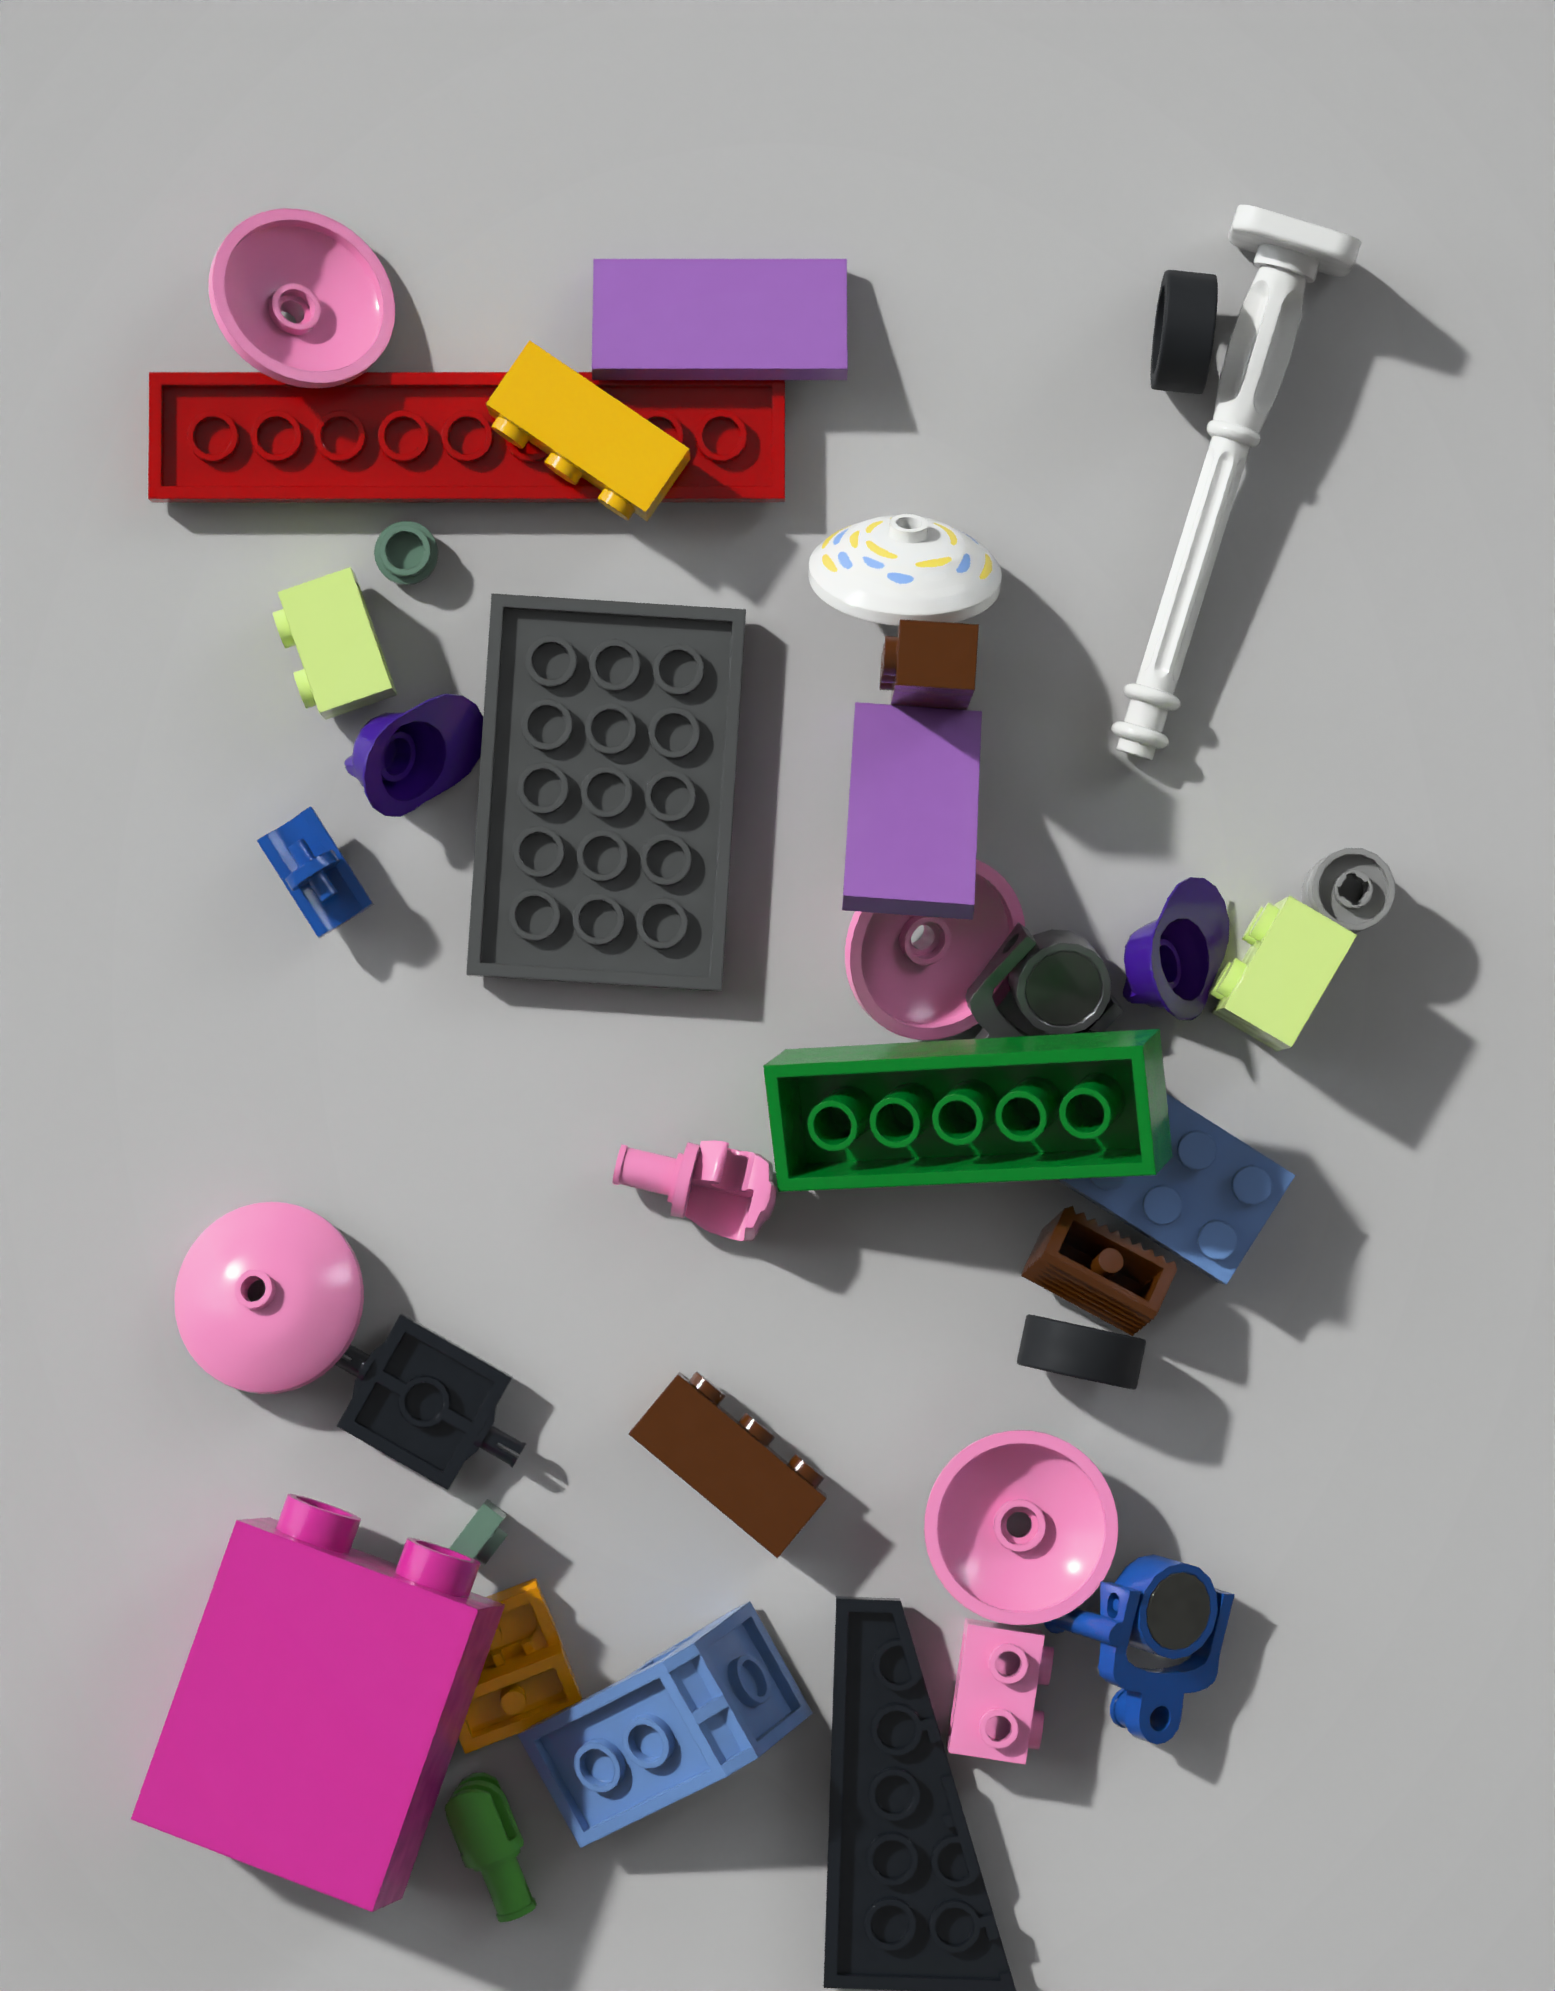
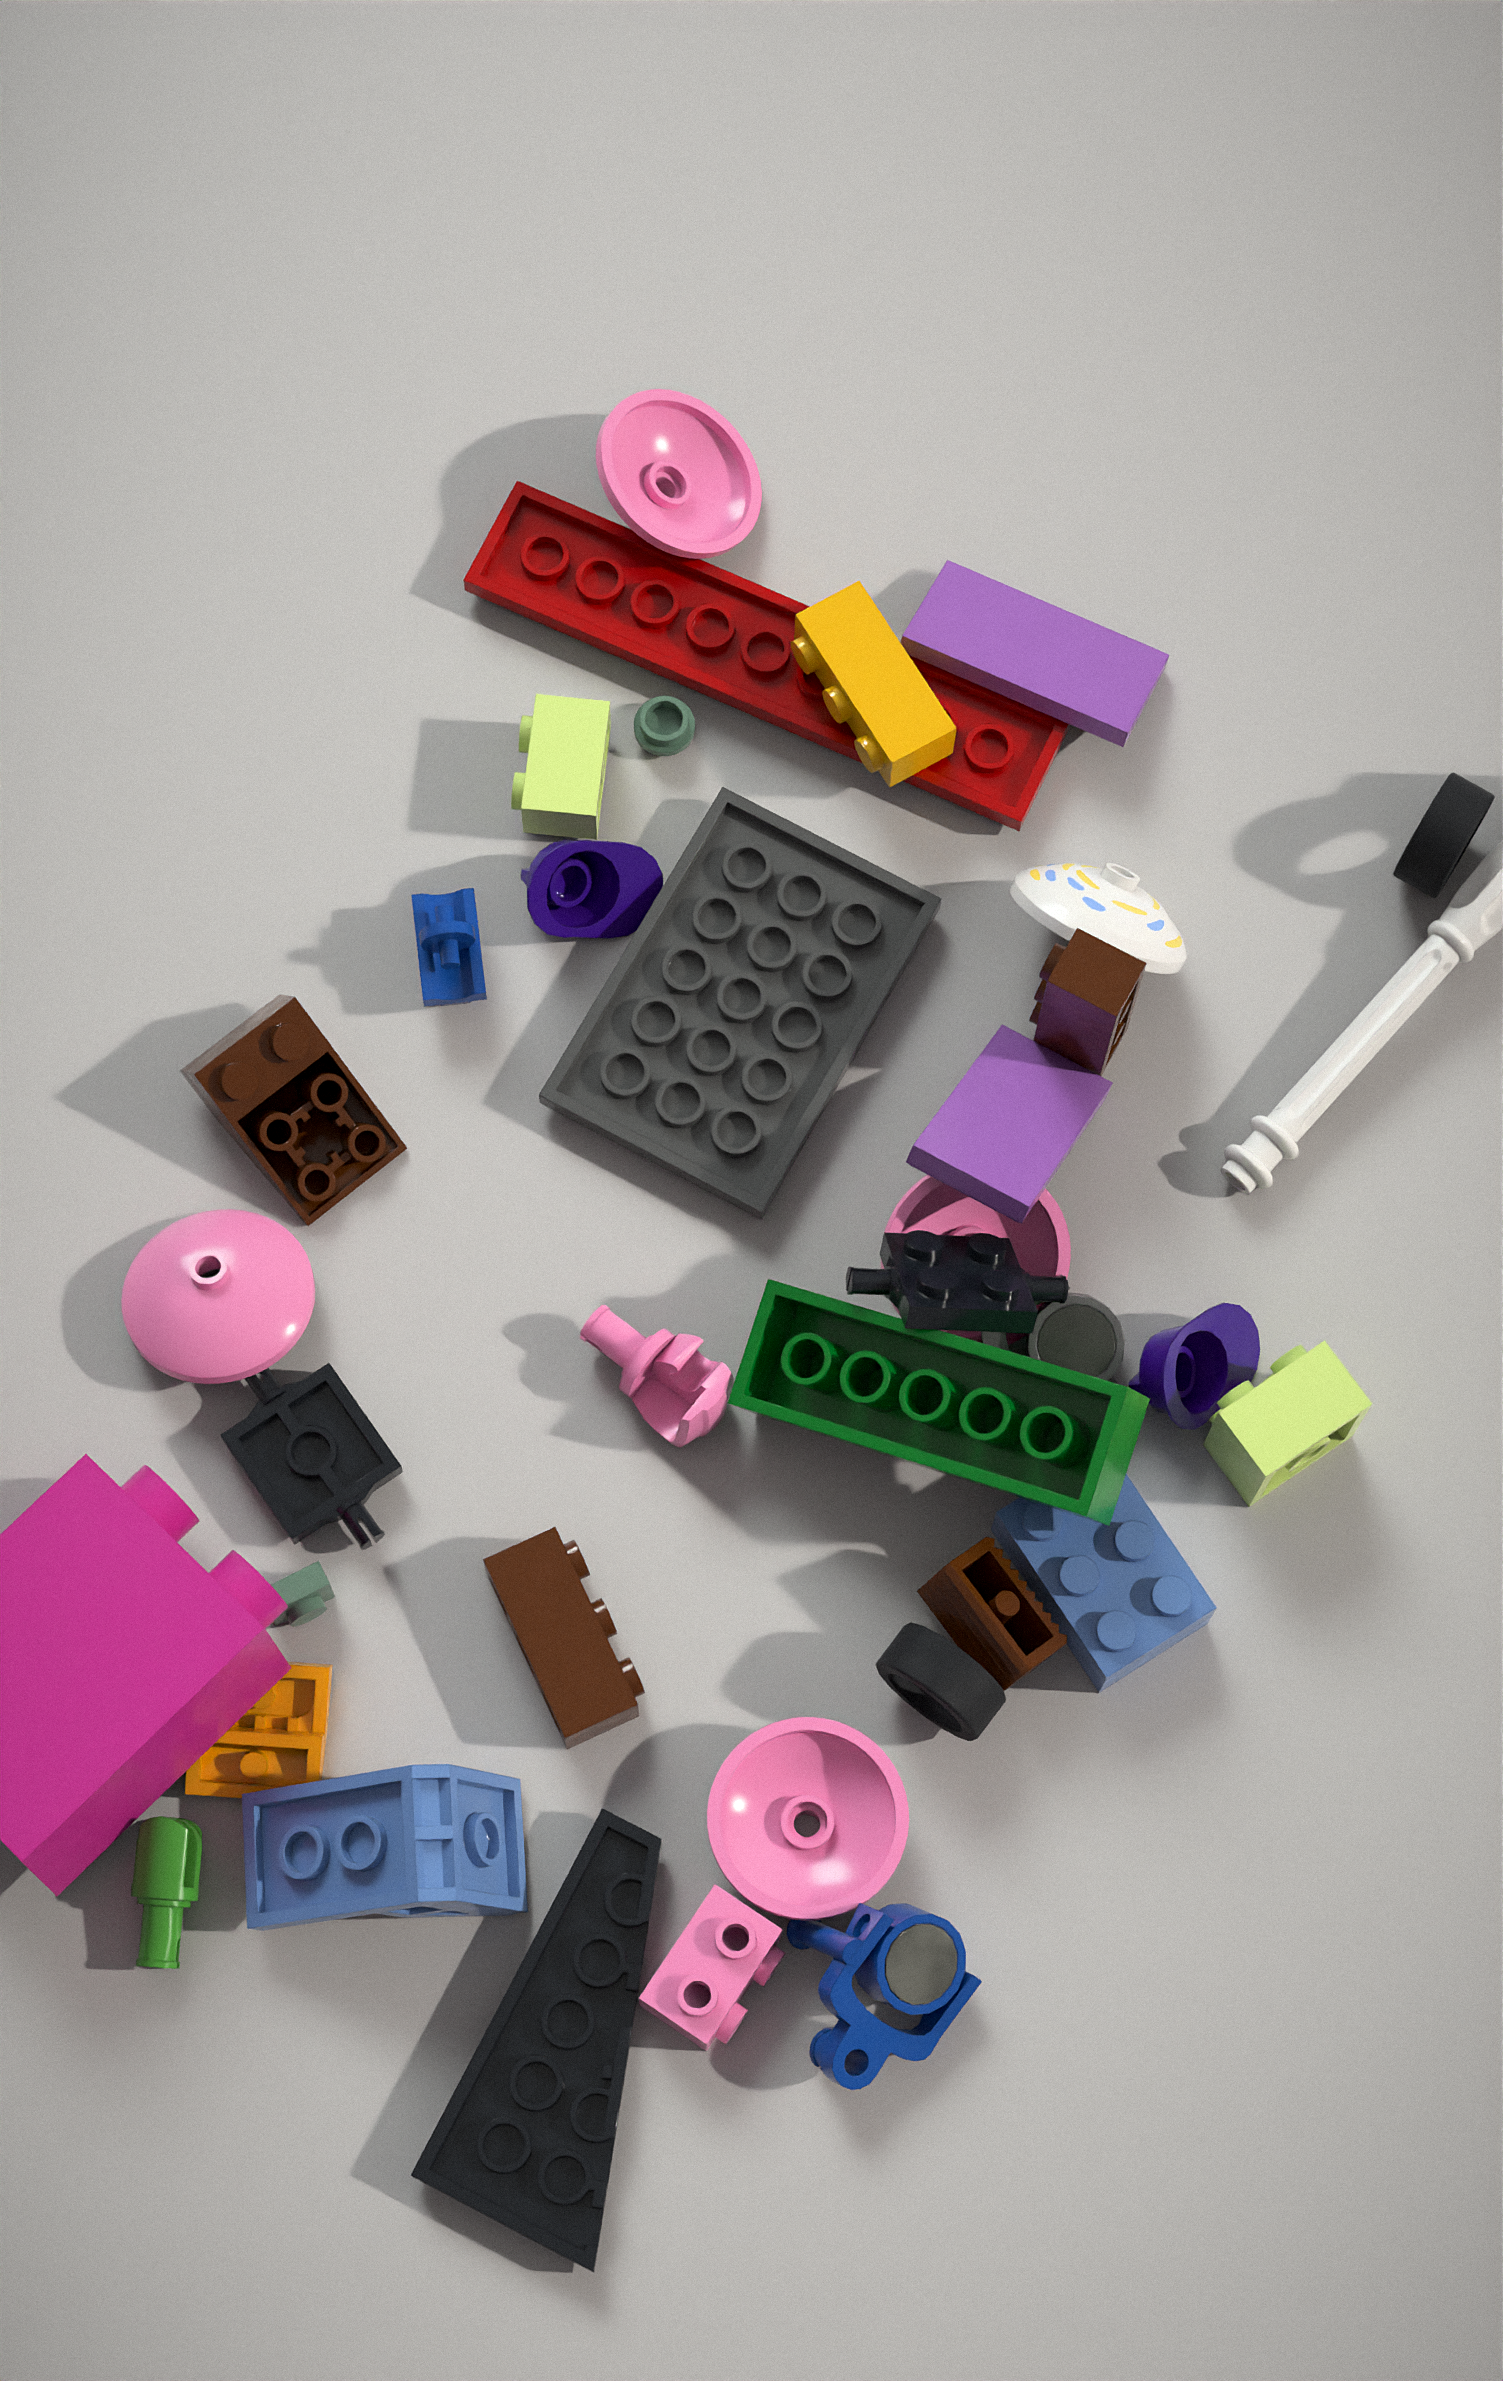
camera: 25 degrees right, 15 degrees down
(246, 1089) = (294, 1108): none -> reddish brown slope
(937, 995) = (957, 1283): none -> black plate
(1350, 888) = (1392, 1377): light grey wheel -> none

